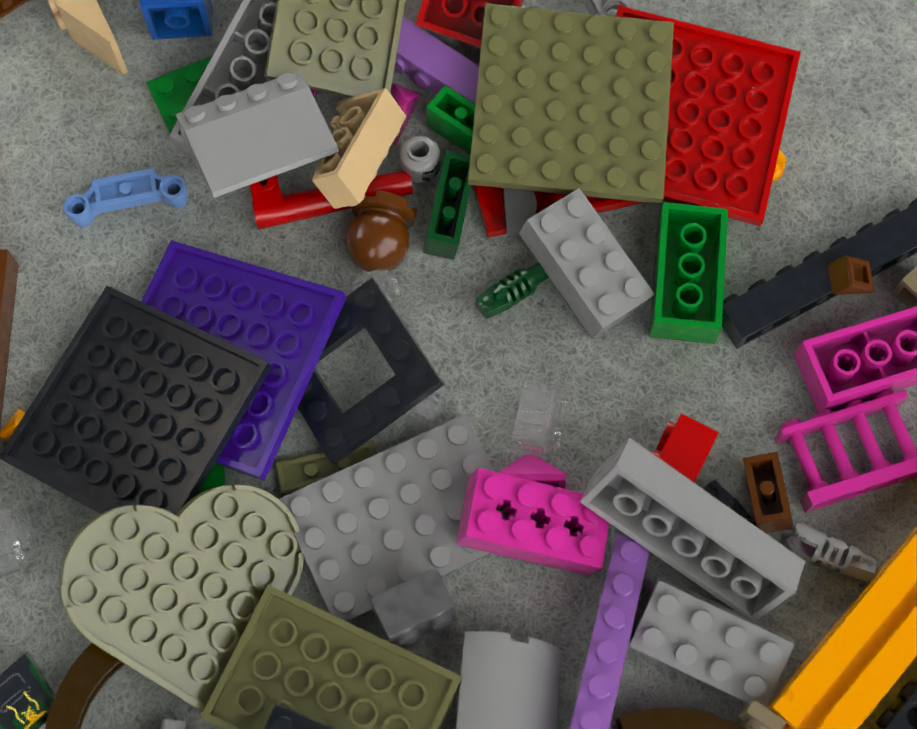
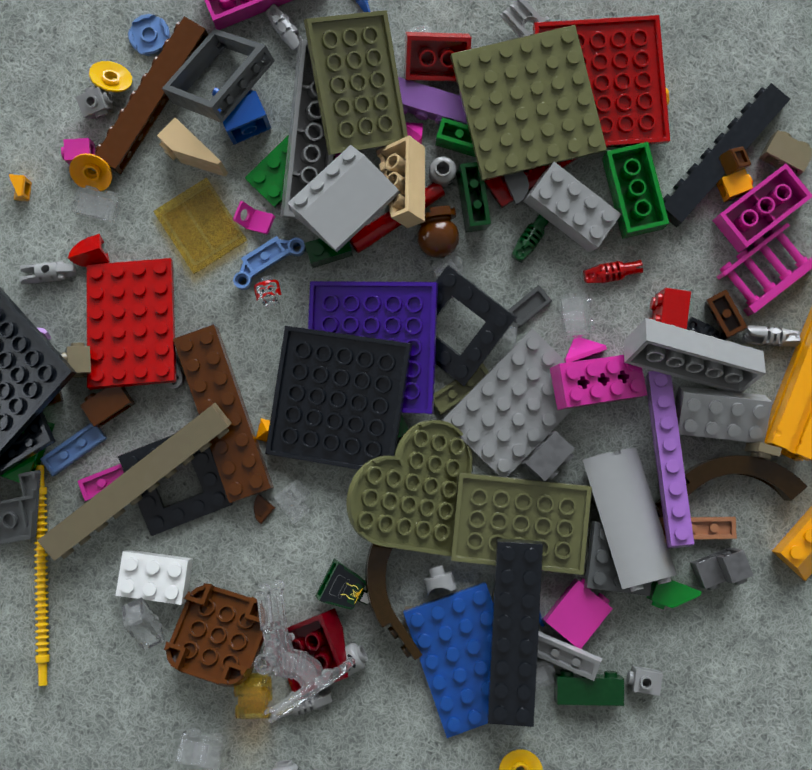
camera: 20 degrees left, 15 degrees up
(57, 124) = (200, 225): none -> clear yellow piece
(108, 239) = (268, 292): none -> clear head
(136, 140) = (255, 220): none -> dark pink bracket
(223, 213) = (321, 253): none -> dark green brick
(475, 385) = (530, 305): none -> dark grey tile
(616, 376) = (611, 271): none -> red hinge
(840, 312) = (734, 185): none -> light orange brick

